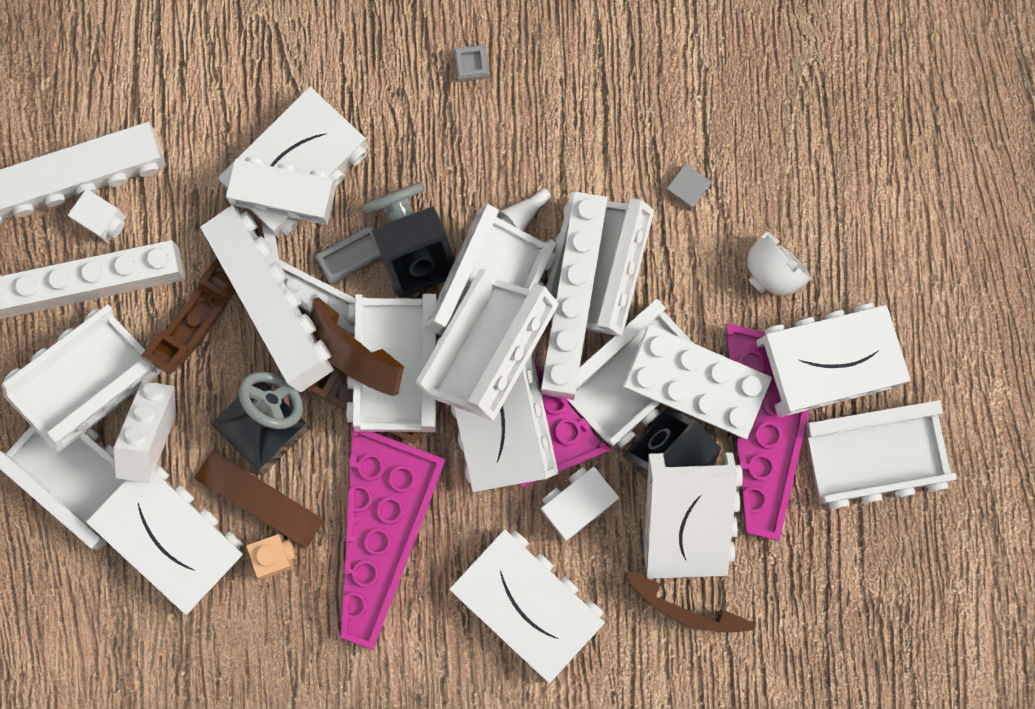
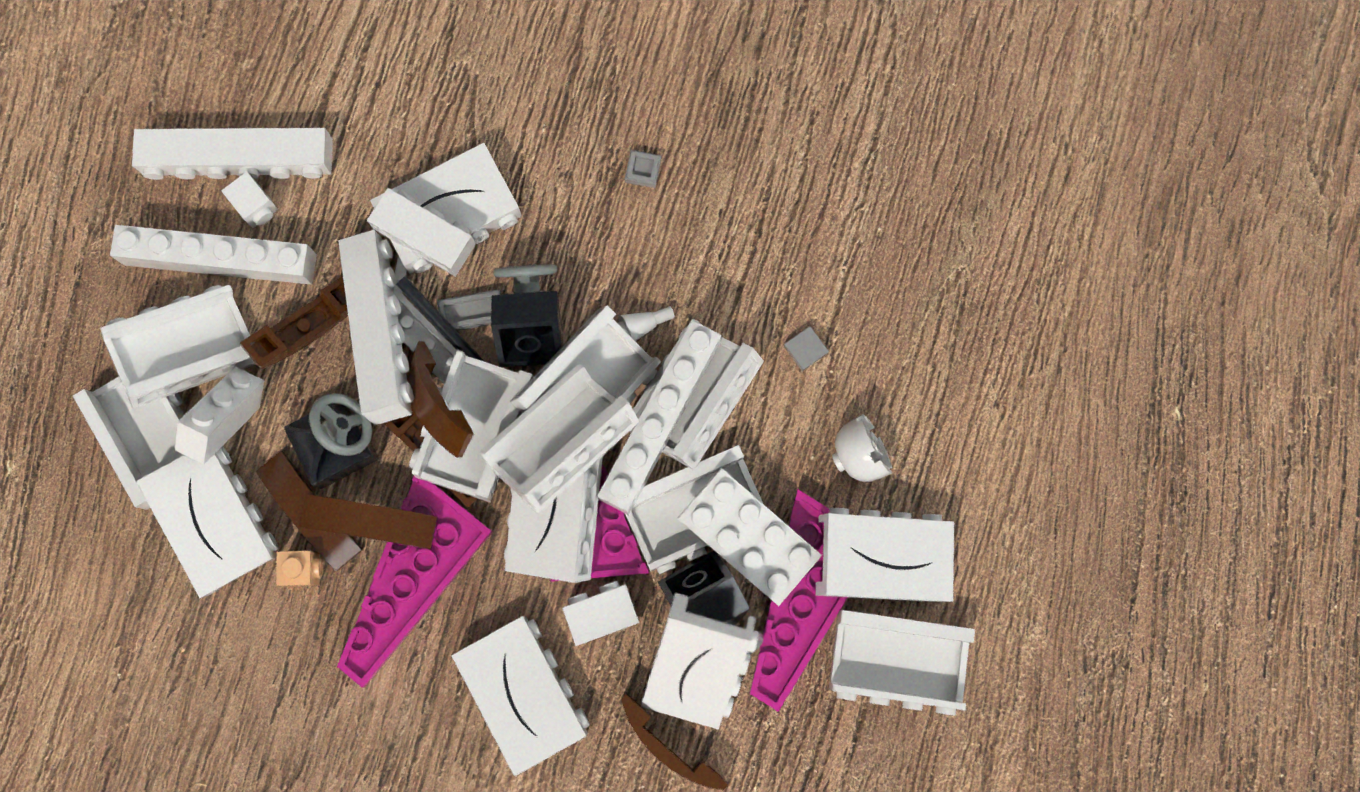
camera: 15 degrees right, 0 degrees up
(320, 271) = (436, 318): none -> black bar
(323, 487) = (368, 521): none -> reddish brown slope

